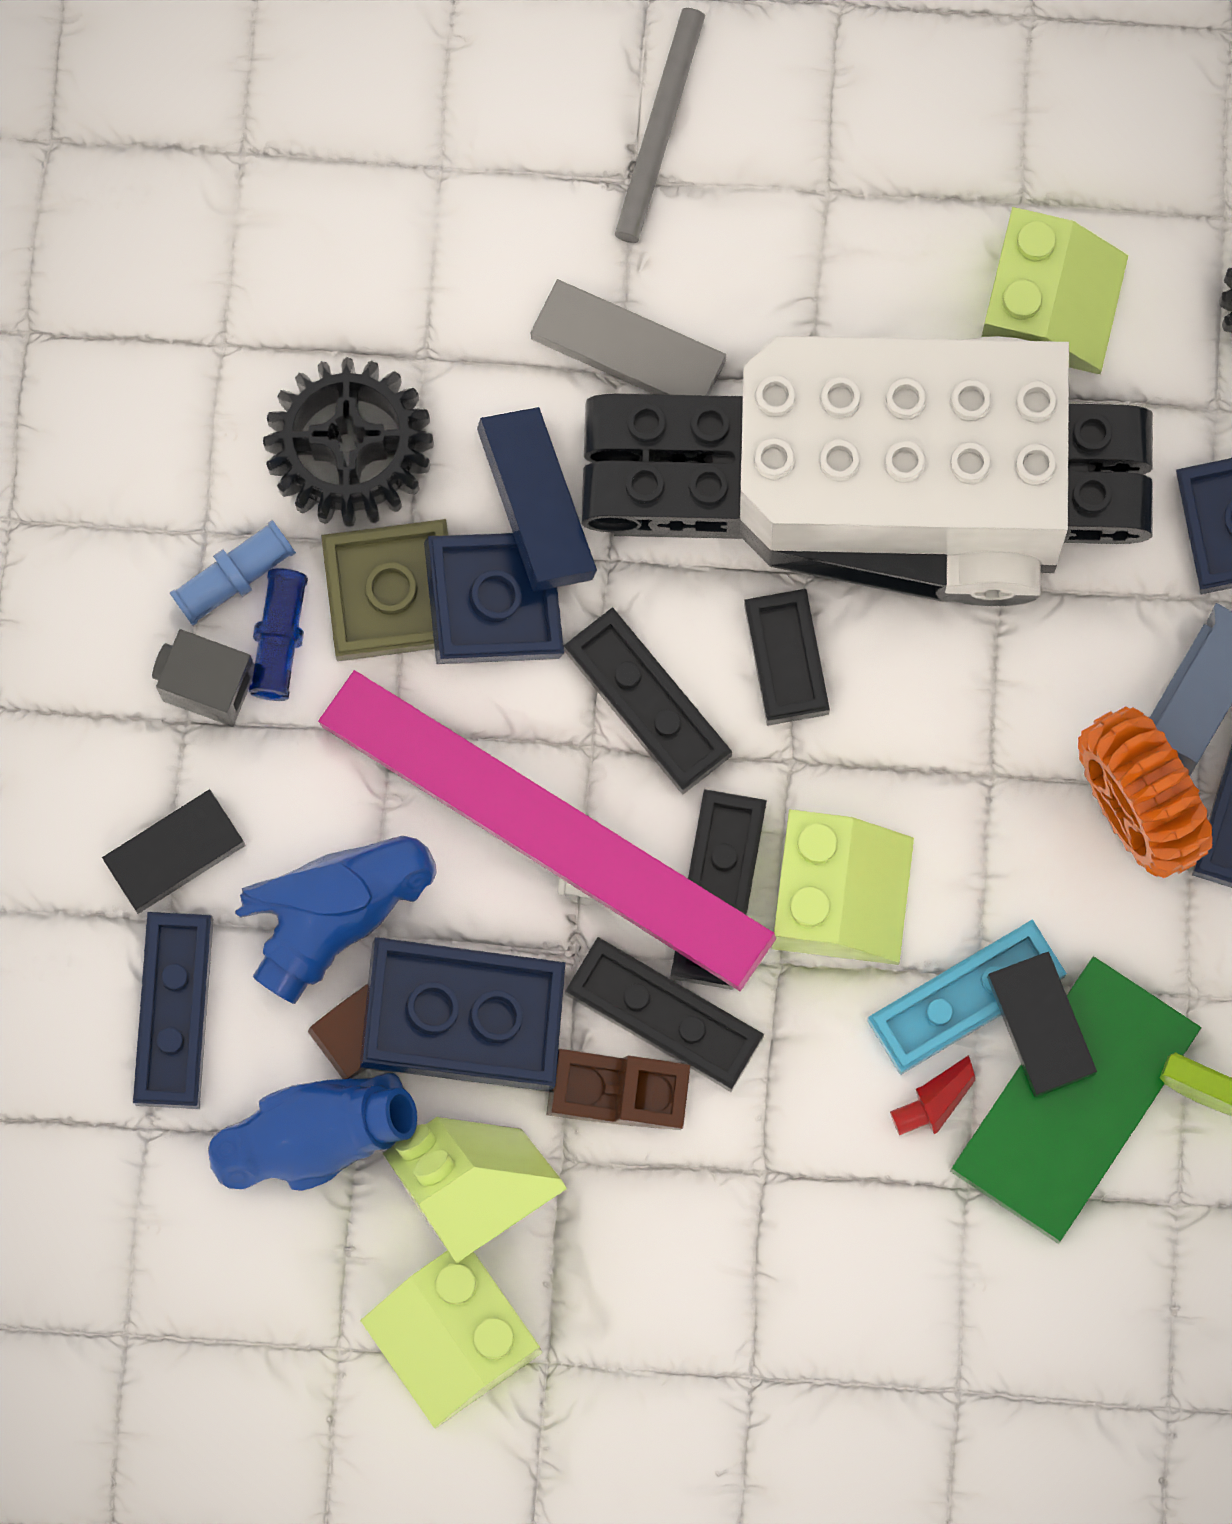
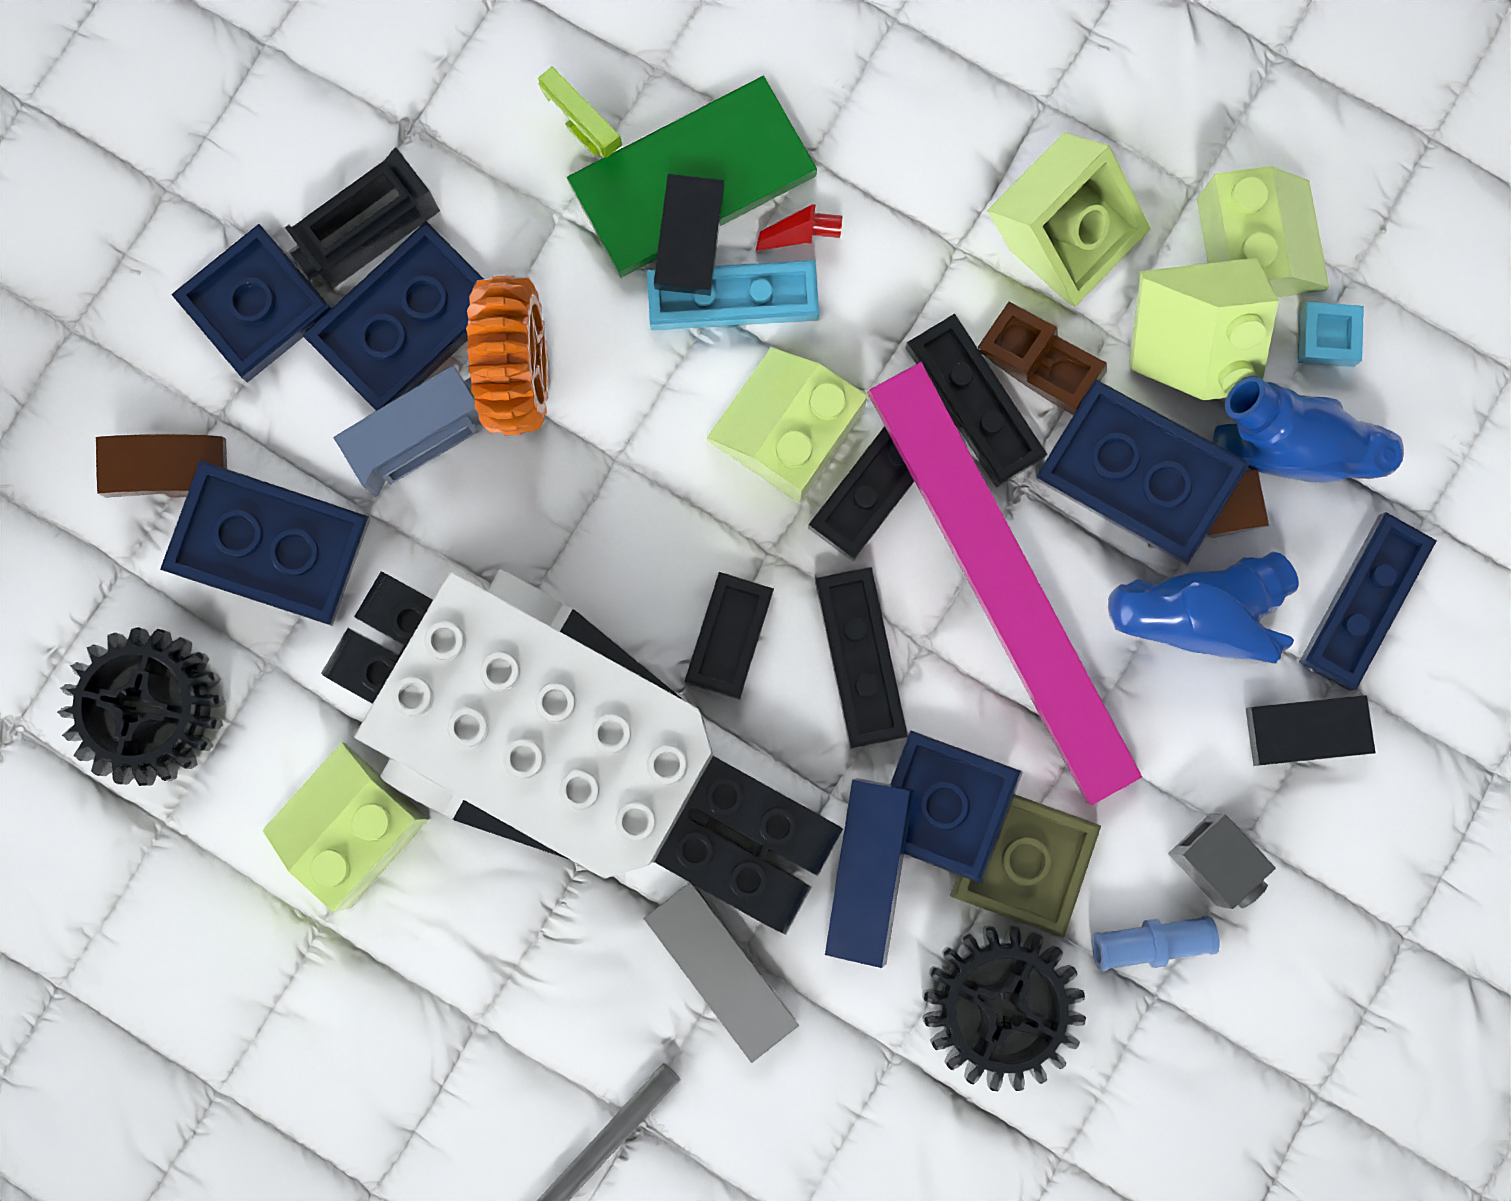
camera: 155 degrees left, 5 degrees up
(278, 634) = (1141, 868): clear blue pin -> none
(335, 1269) = (1330, 334): none -> medium azure tile
(664, 1246) = (1071, 216): none -> yellowish green slope

